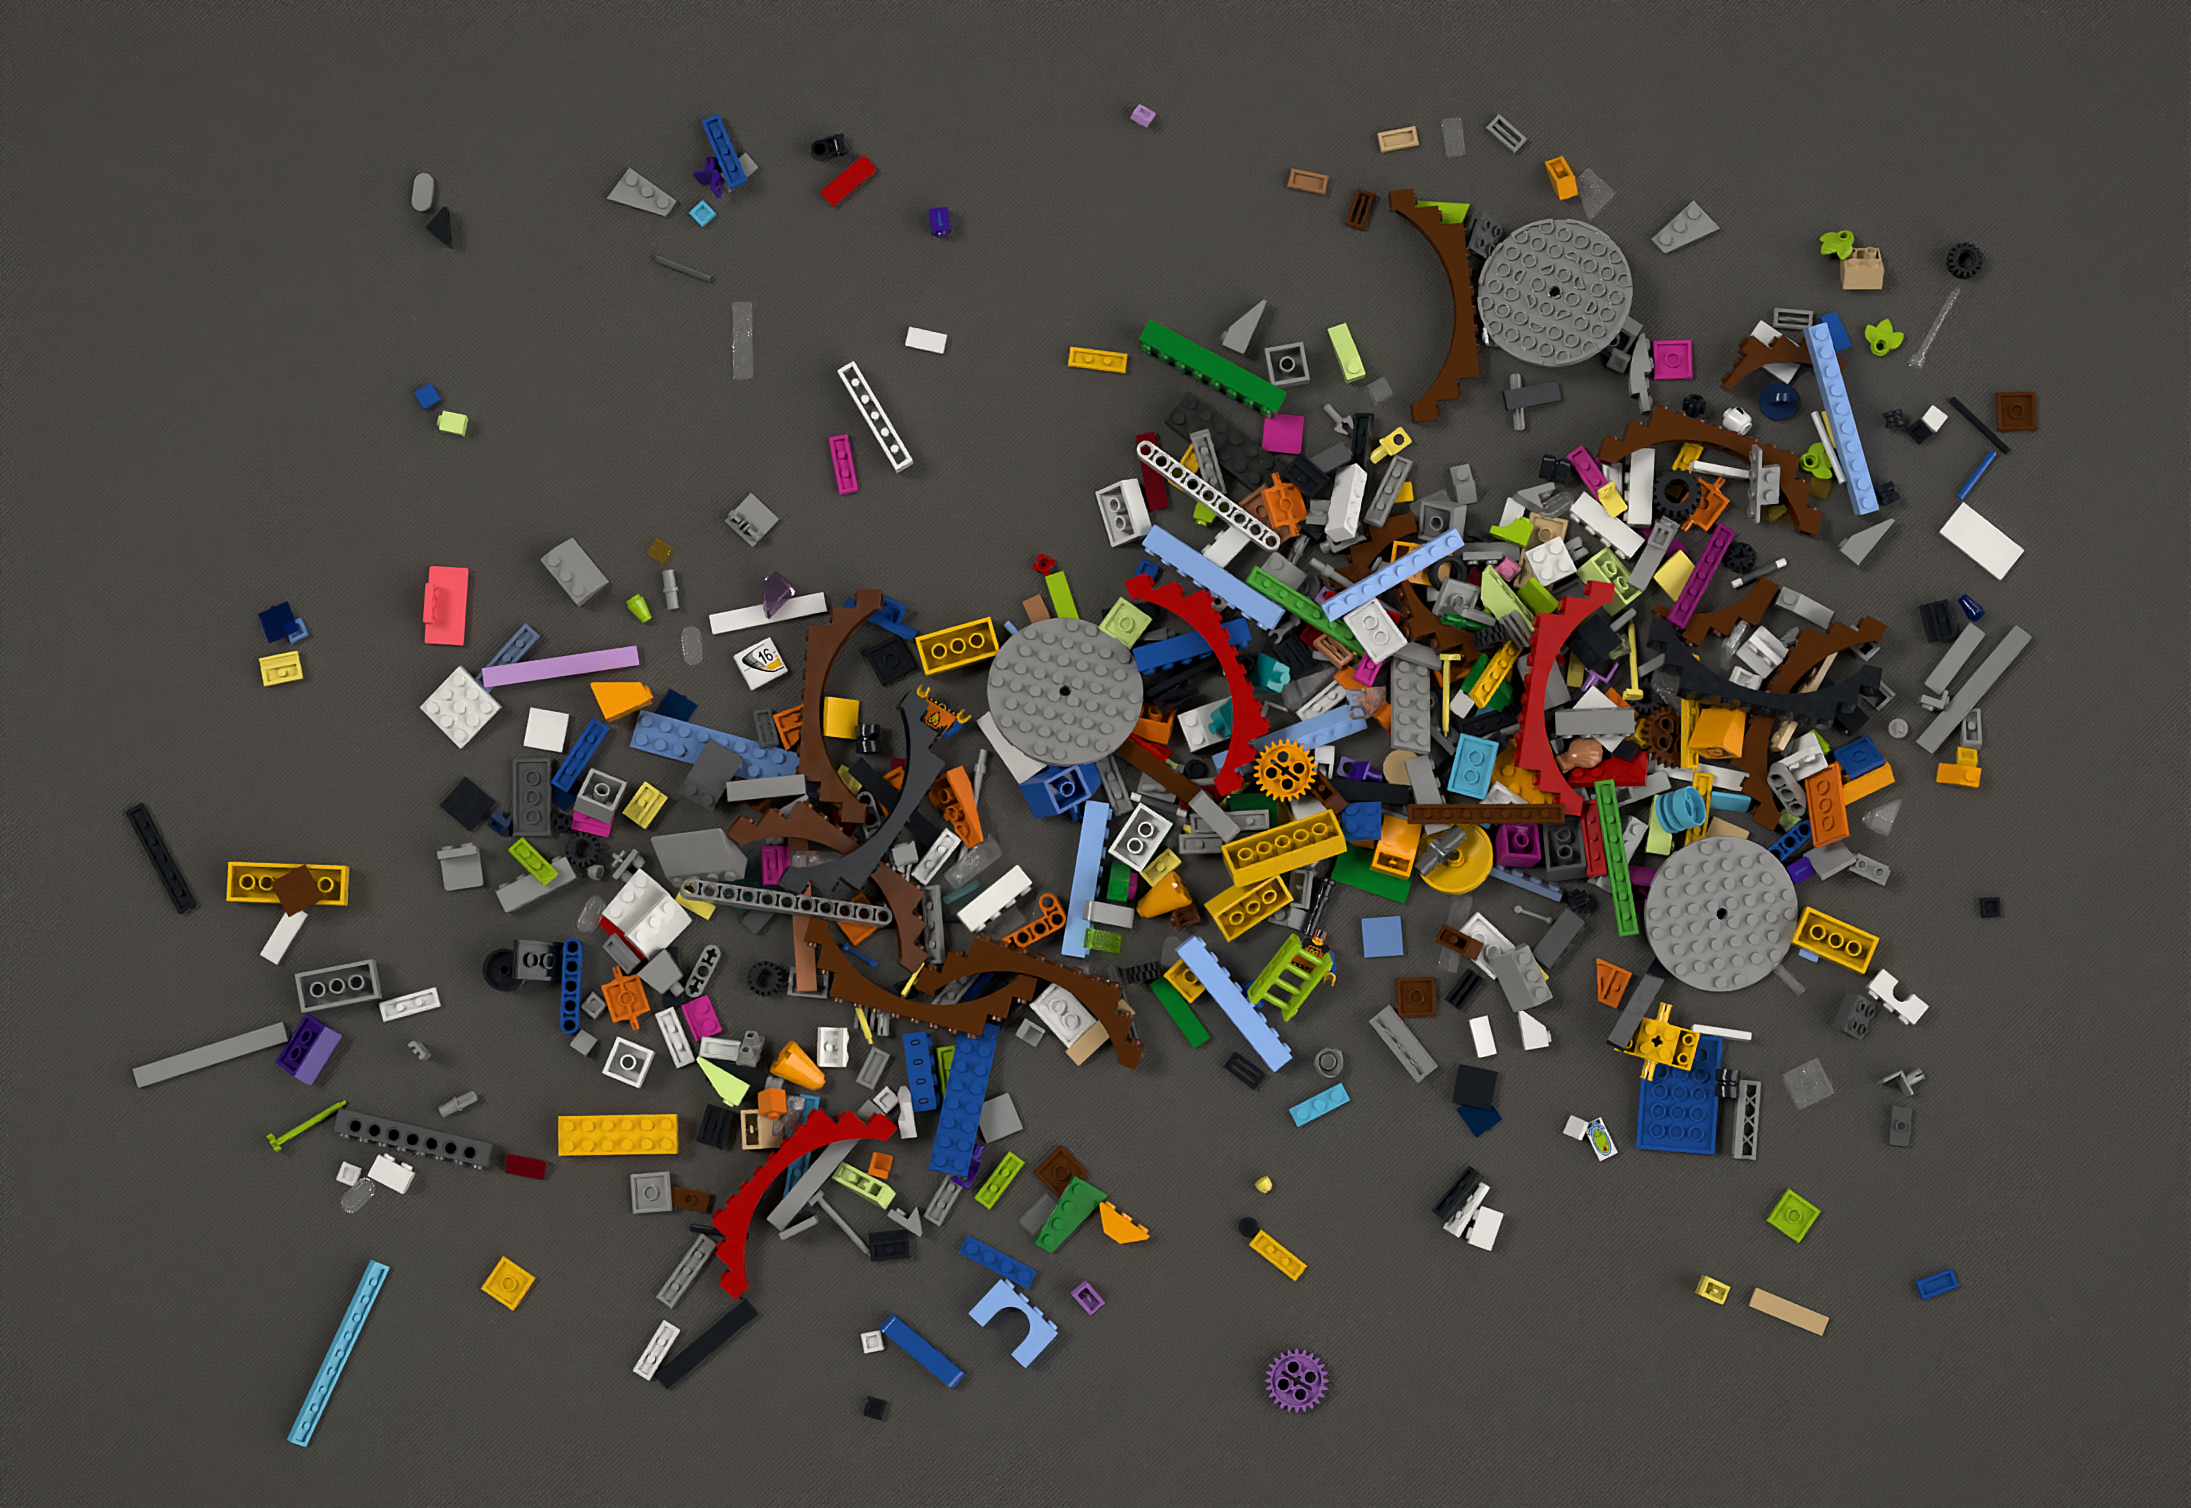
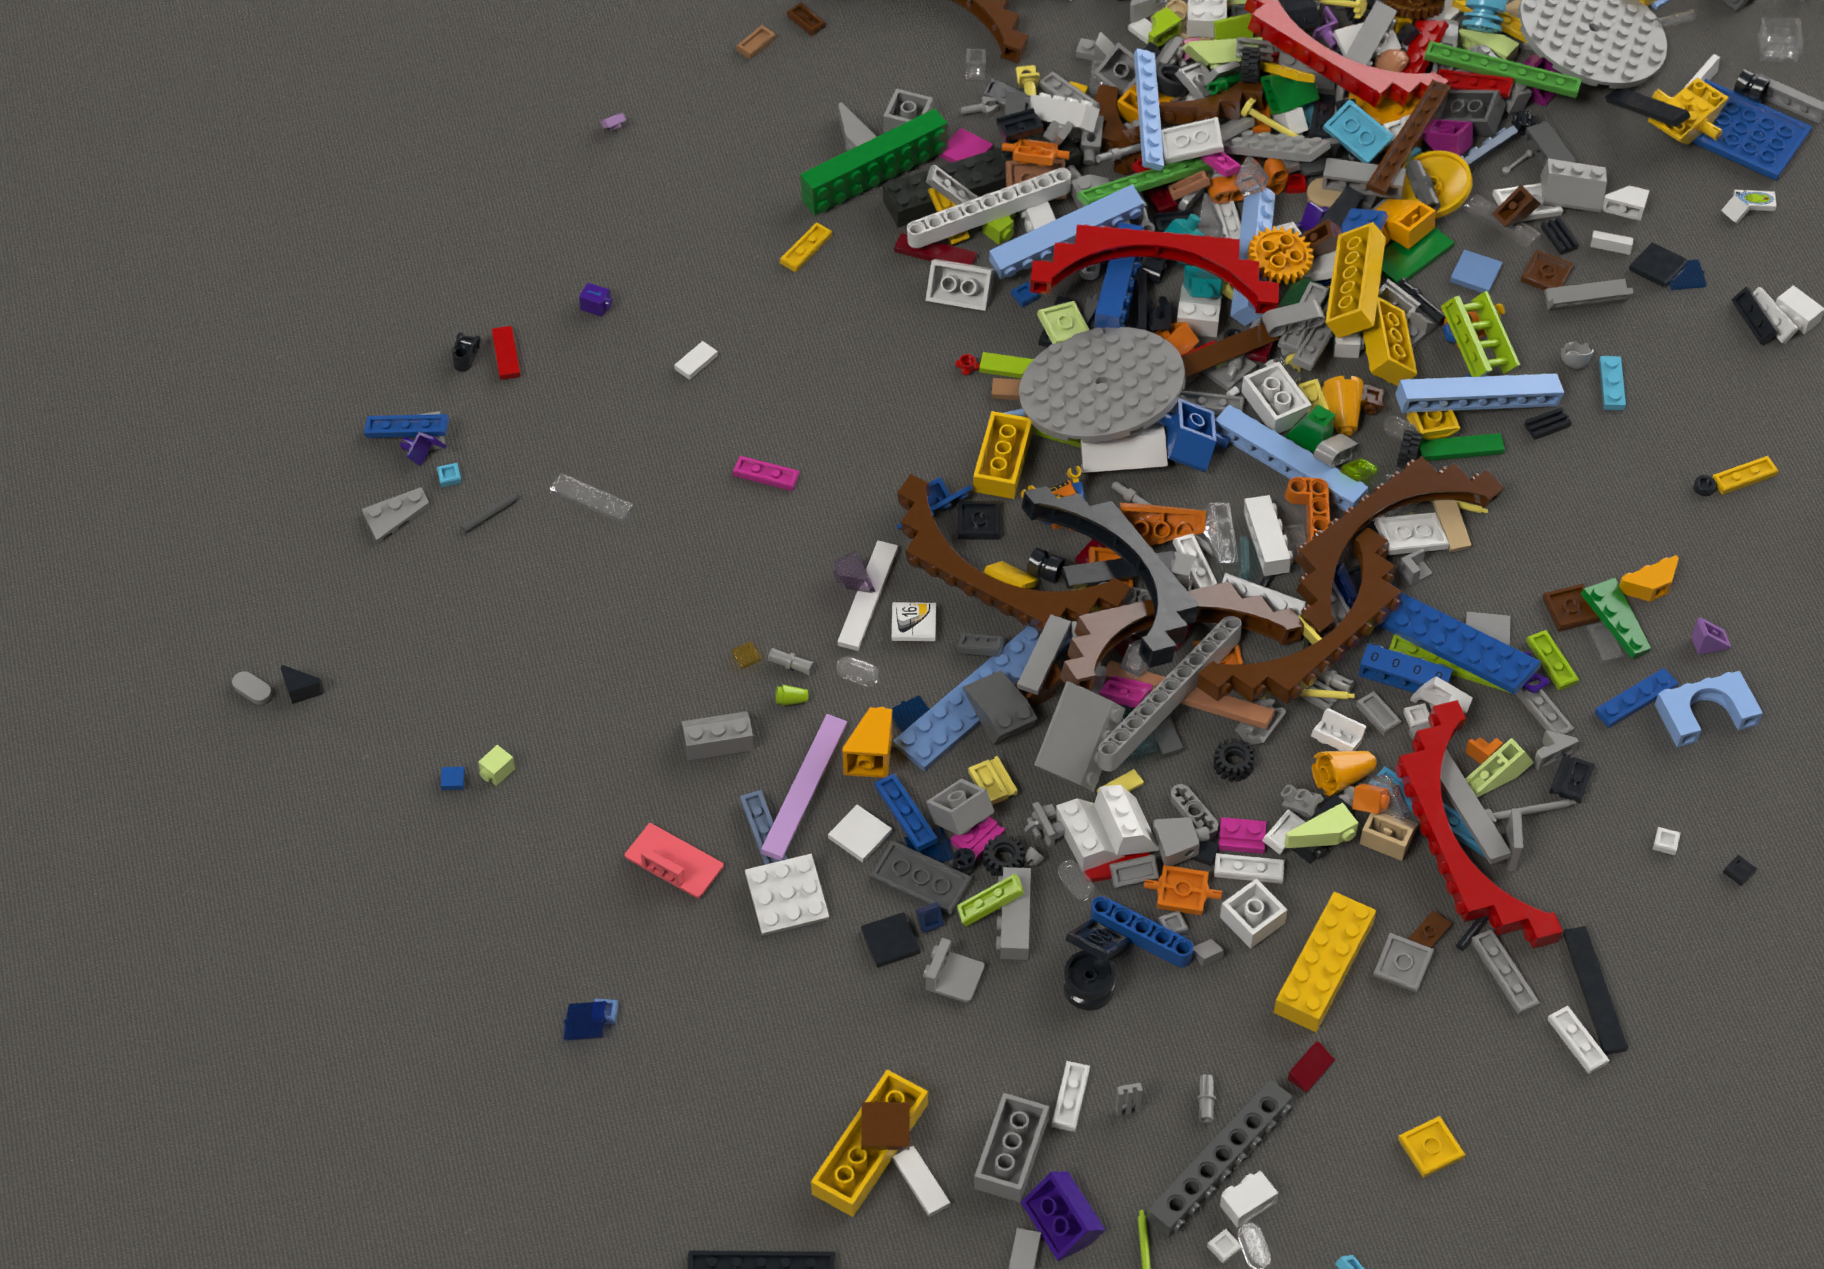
camera: 60 degrees left, 30 degrees down
(281, 668) = (635, 1042): light yellow plate -> none
(715, 1126) = (1364, 872): black plate -> none
(751, 520) = (768, 567): light grey hinge -> none
(788, 725) = (990, 621): orange wing -> none
(875, 417) = (740, 421): white brick -> none
(922, 1351) = (1699, 799): blue beam -> none
(1264, 1184) = (1668, 454): light yellow hinge -> none
(1346, 353) = (929, 75): yellowish green slope -> none
(1611, 983) = (1612, 133): orange wing -> none

